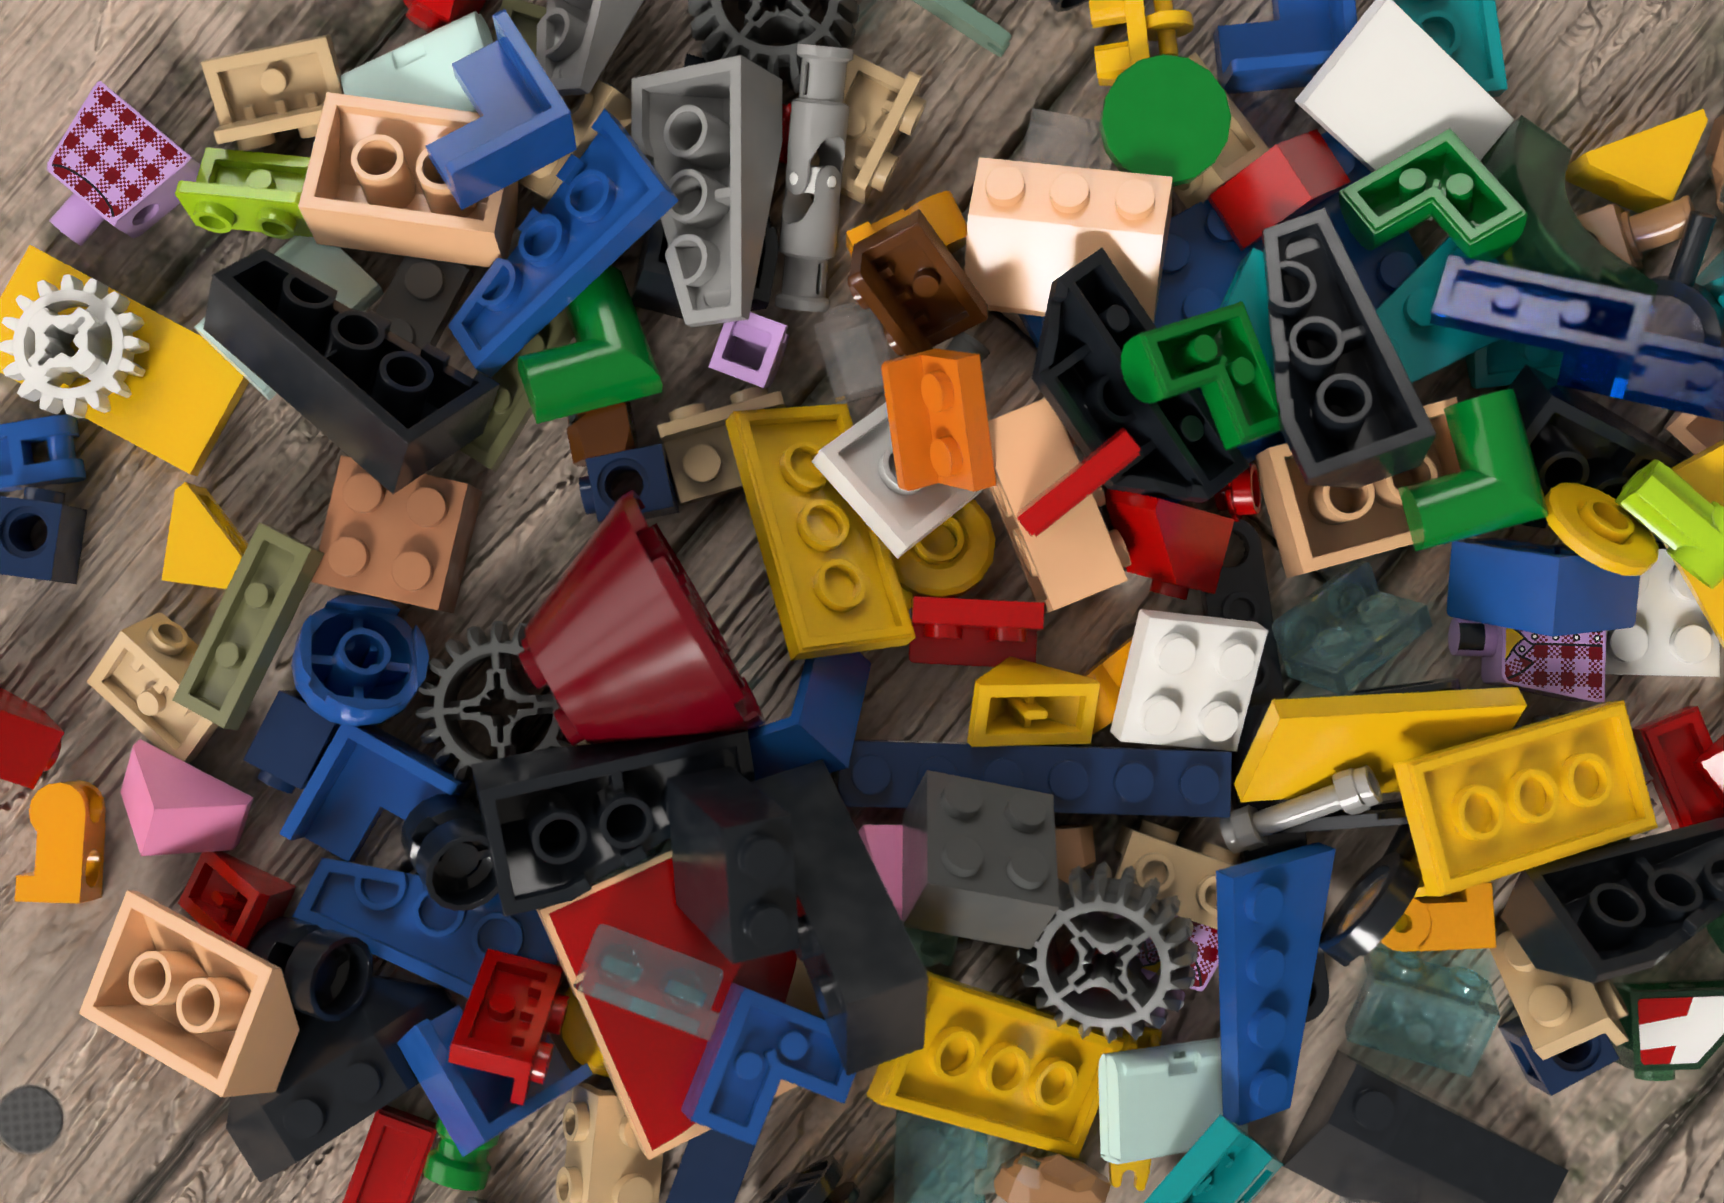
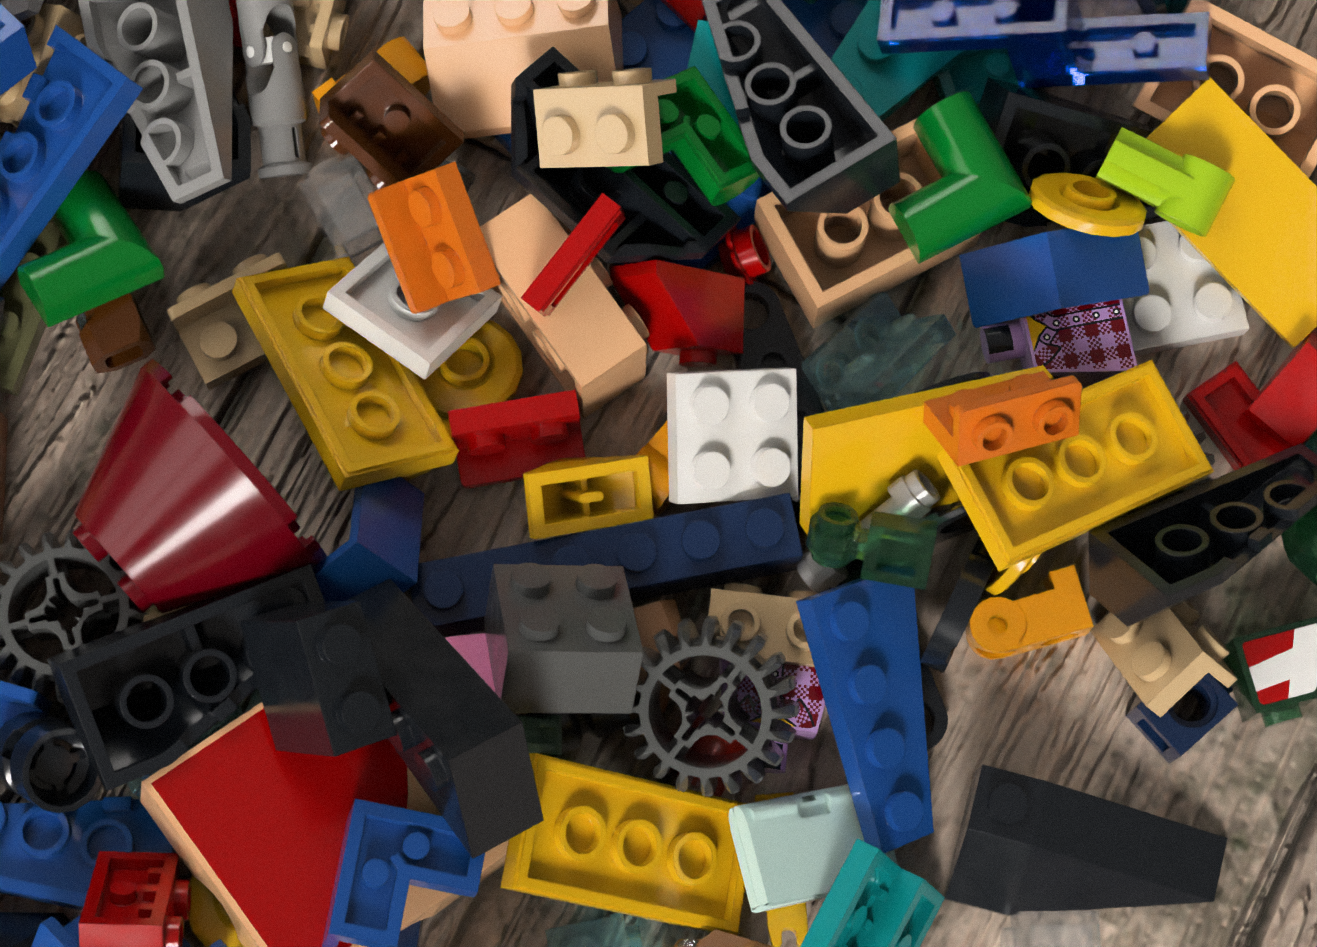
camera: 10 degrees left, 10 degrees down
(649, 462) = (166, 349): dark blue brick -> none
(650, 980) = (263, 822): clear light blue bracket -> none
(751, 349) = (242, 216): lavender leg -> none
(1140, 347) = (601, 121): none -> tan bracket
(1318, 841) = (892, 549): none -> clear green plate
(1423, 1011) = (1042, 711): clear light blue bracket -> none
(1473, 745) = (1005, 416): none -> orange bracket

